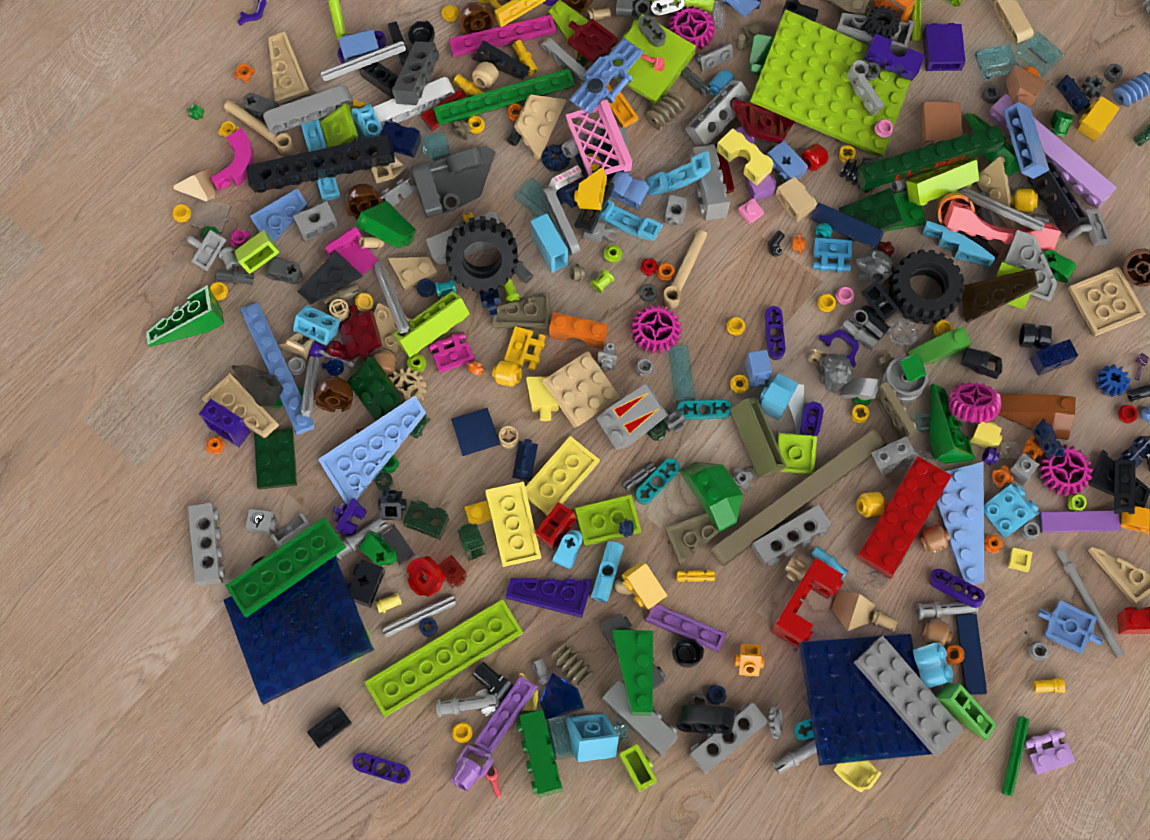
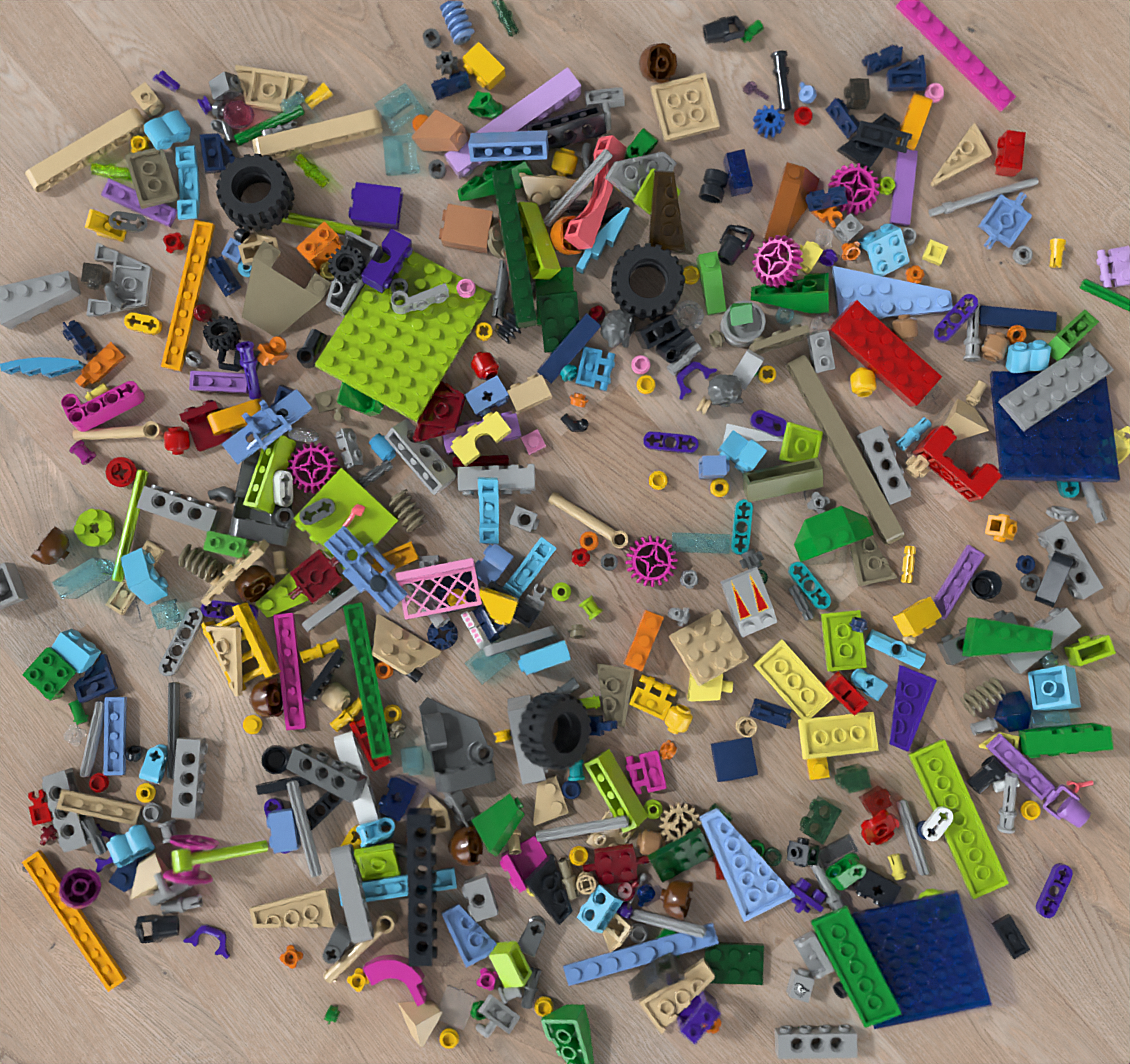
camera: 80 degrees left, 15 degrees up
(435, 637) = (933, 820): none -> white beam

